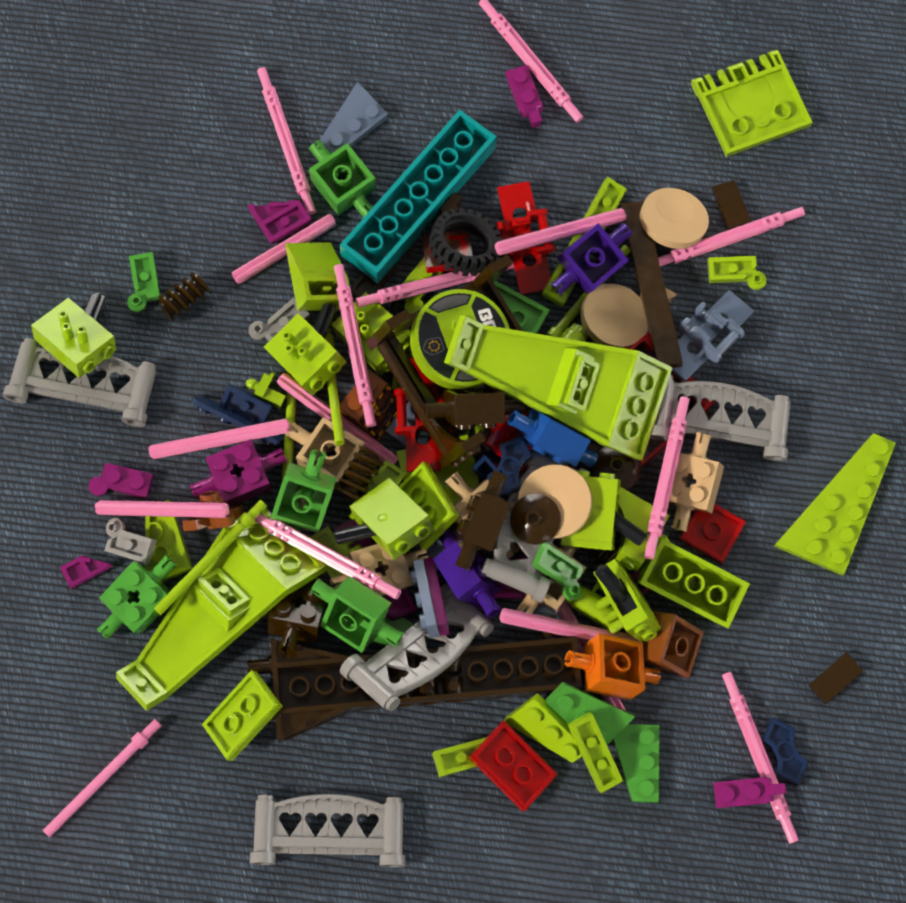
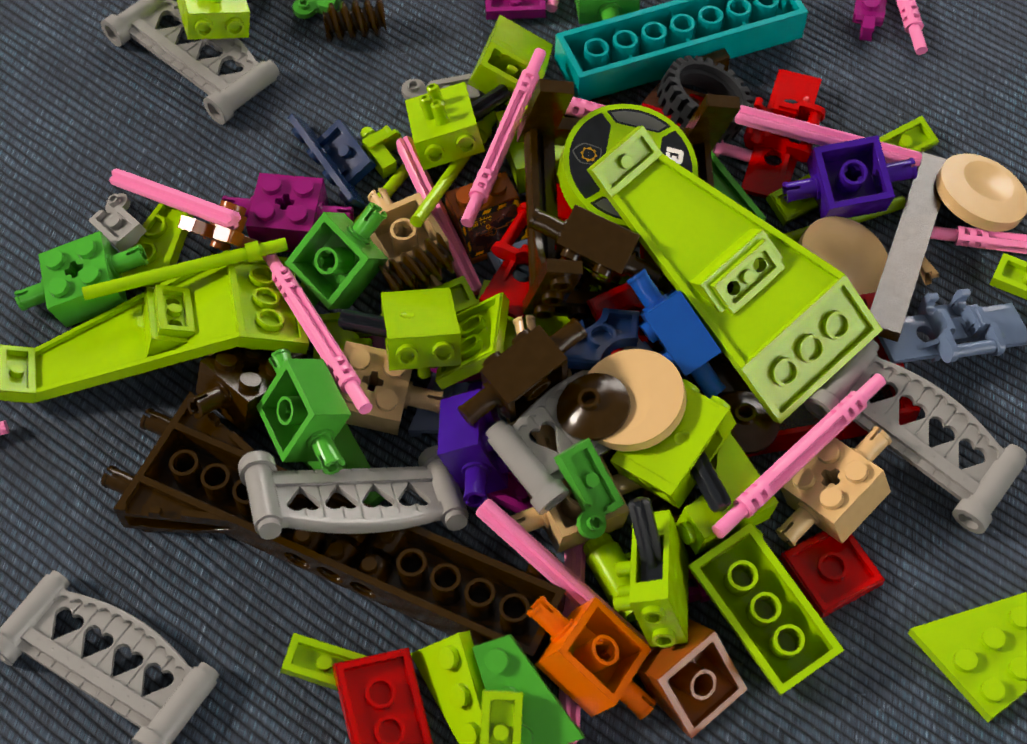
camera: 35 degrees right, 15 degrees down
(83, 570) = (49, 230): magenta tile -> none
(122, 481) = (160, 163): magenta hinge -> none
(219, 438) = (292, 165): bright pink axle -> none
(241, 715) = (97, 463): lime tile -> none
(279, 251) = (482, 28): bright pink axle -> none
(400, 607) = (367, 442): magenta tile -> none
(424, 599) = (401, 440): sand blue wing -> none
(436, 596) = (415, 449): magenta tile -> none

